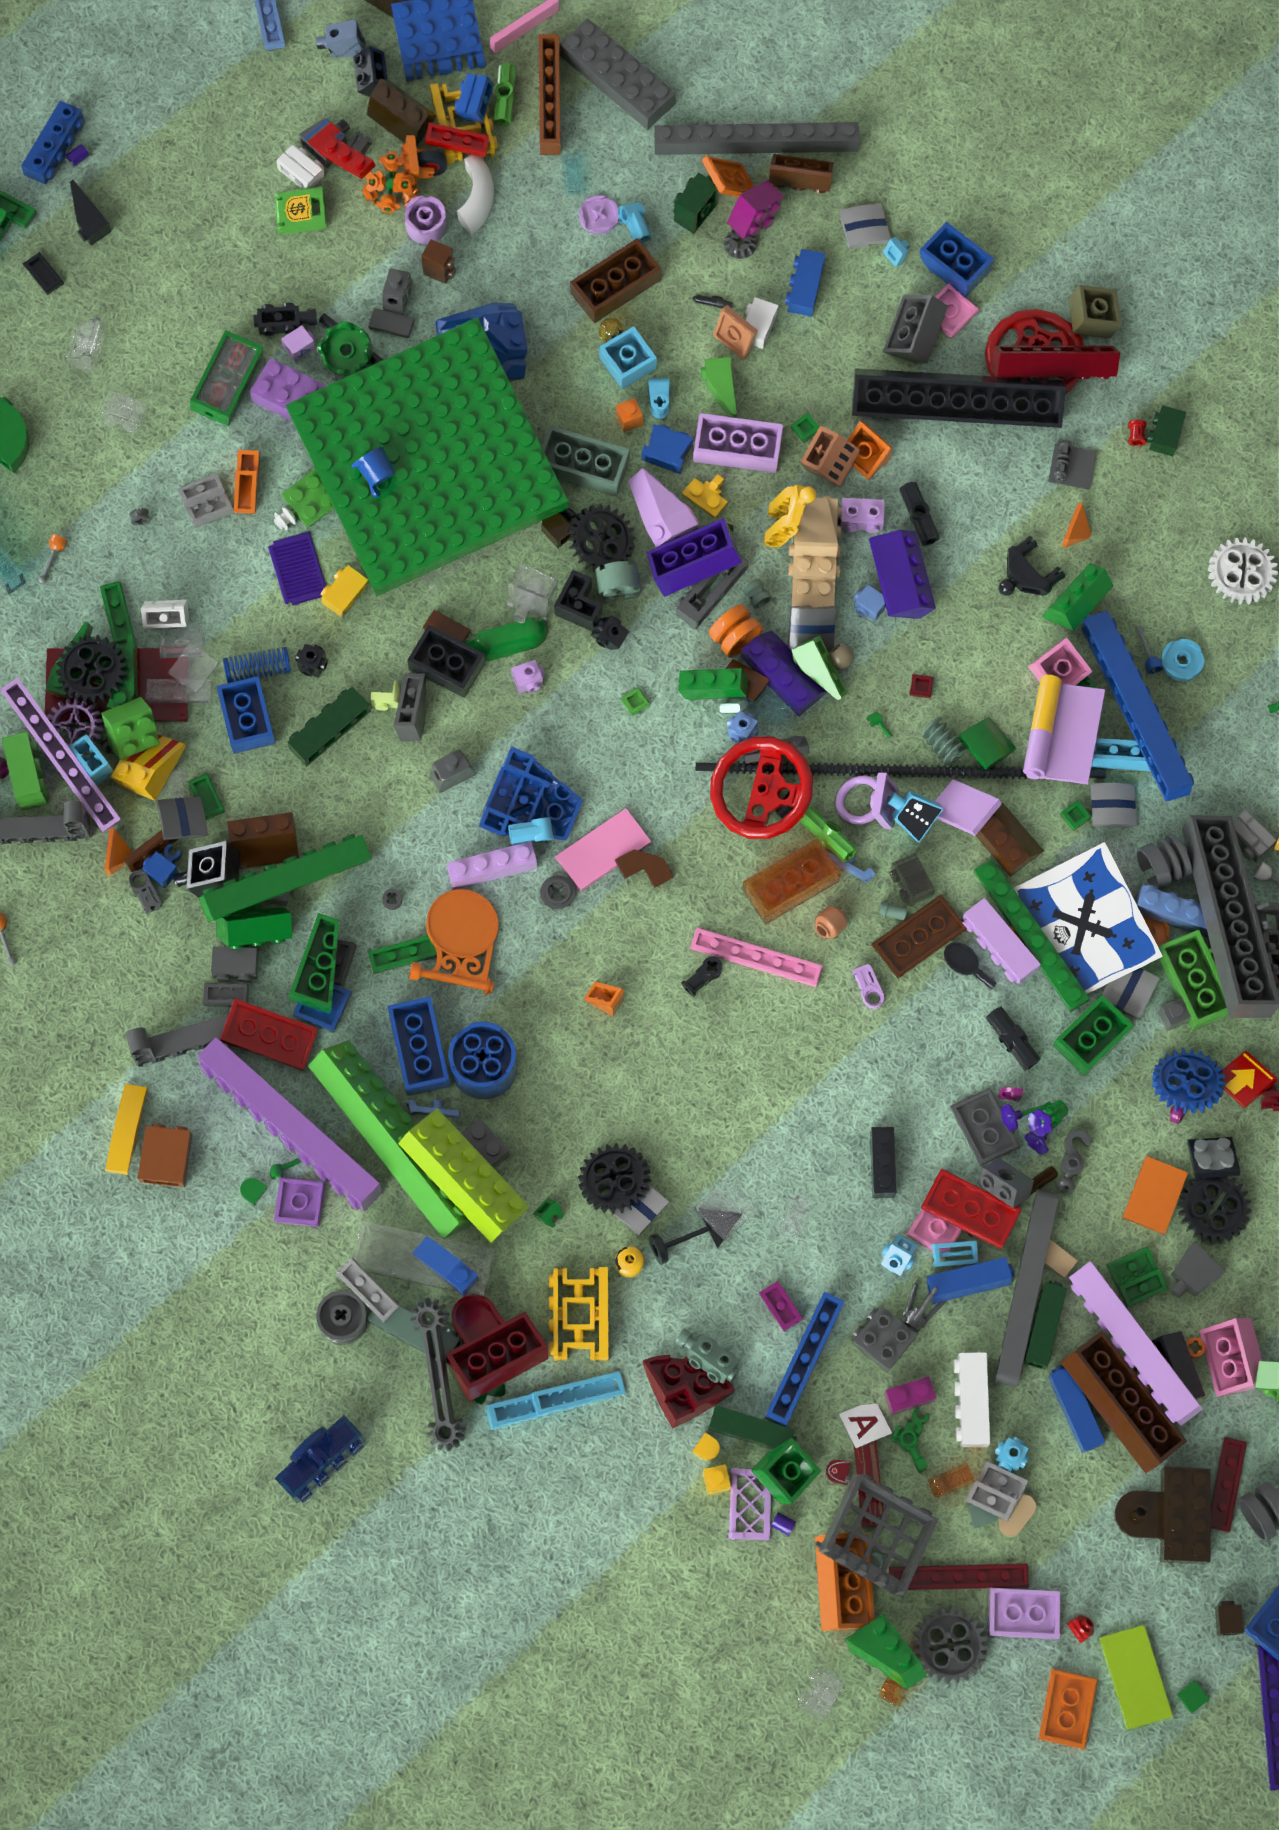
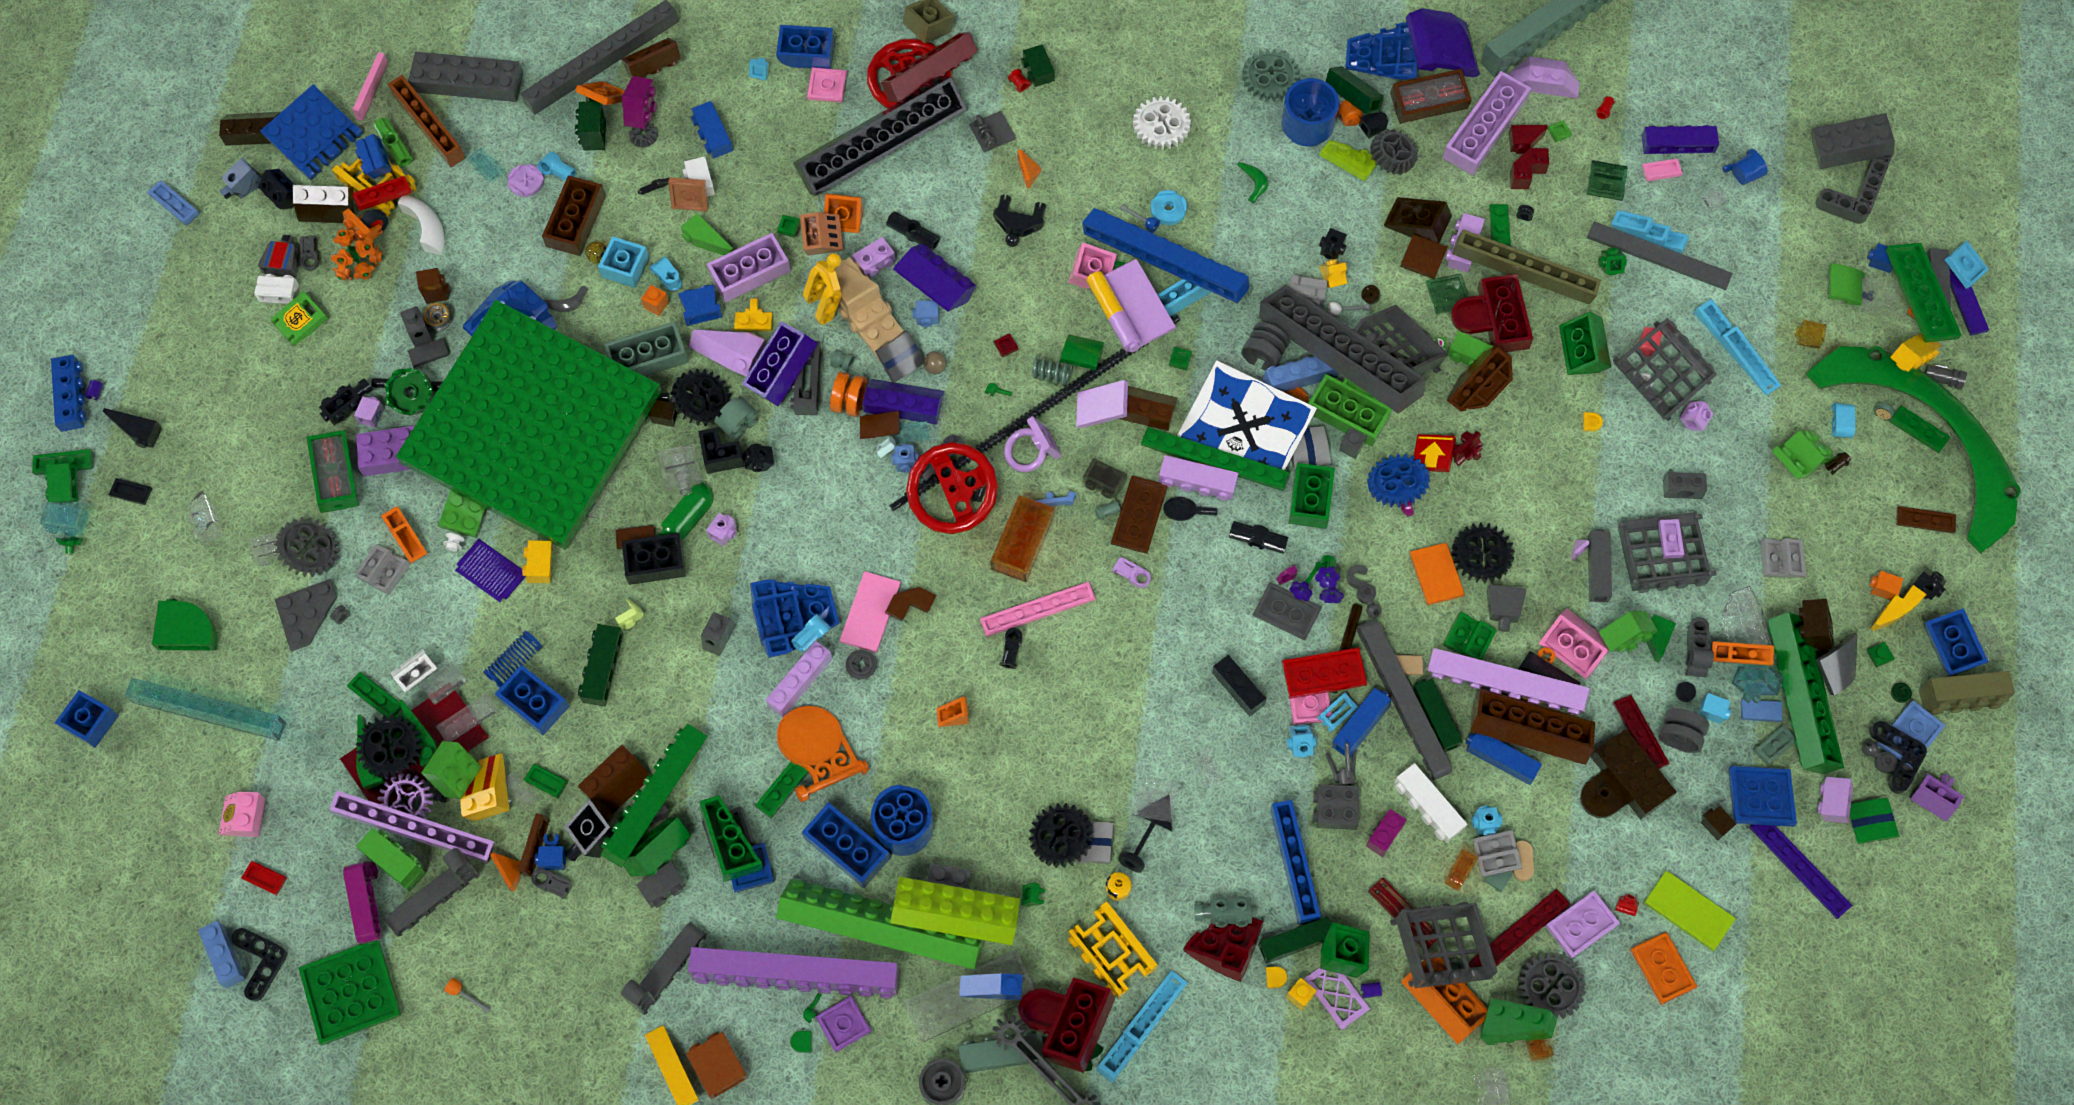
camera: 35 degrees left, 5 degrees down
(57, 544) = (290, 677): hinge -> none
(95, 763) = (442, 812): medium azure torso -> none
(112, 492) = (305, 612): none -> dark grey plate
(147, 415) = (291, 536): none -> dark grey gear
(182, 818) = (540, 807): dark grey slope -> none
(193, 667) = (466, 693): clear piece -> none
(224, 993) = (671, 913): dark grey plate -> none
(268, 1034) = (727, 918): red plate -> none
(312, 666) = (552, 627): black brick -> none
(346, 157) = (307, 256): red plate -> none
(368, 1289) = (947, 1048): light grey tile -> none
(375, 469) = (500, 454): blue hat -> none
(385, 899) = (739, 751): dark grey bush -> none
(411, 708) = (653, 609): dark grey slope -> none
(414, 1109) = (892, 883): medium blue piece -> none
(425, 219) = (399, 264): lavender brick -> none
(428, 288) = (437, 310): none -> light grey wheel
(547, 363) = (568, 304): none -> dark grey piece
(635, 701) = (812, 493): bright green tile -> none
(713, 684) = (861, 441): green brick -> none
(780, 1306) = (1247, 838): magenta plate -> none
(816, 663) = (922, 378): slope -> none
(829, 835) = (1024, 487): bright green piece -> none
(830, 922) = (1071, 547): nougat head -> none
(837, 1471) = (1379, 924): dark red tile -> none
(864, 226) = (723, 66): light grey slope -> none
(865, 1424) = (1370, 876): white sticker -> none
(909, 1439) = (1408, 864): green piece -> none
(914, 813) = (1072, 431): torso -> none
(915, 328) = (813, 109): dark grey slope -> none
(1006, 1182) = (1334, 637): dark grey brick -> none
(1079, 597) = (1067, 211): green slope -> none
(1113, 805) = (1199, 334): light grey slope -> none
(1193, 1697) = (1737, 894): green tile -> none
(1213, 1157) = (1455, 519): piece -> none

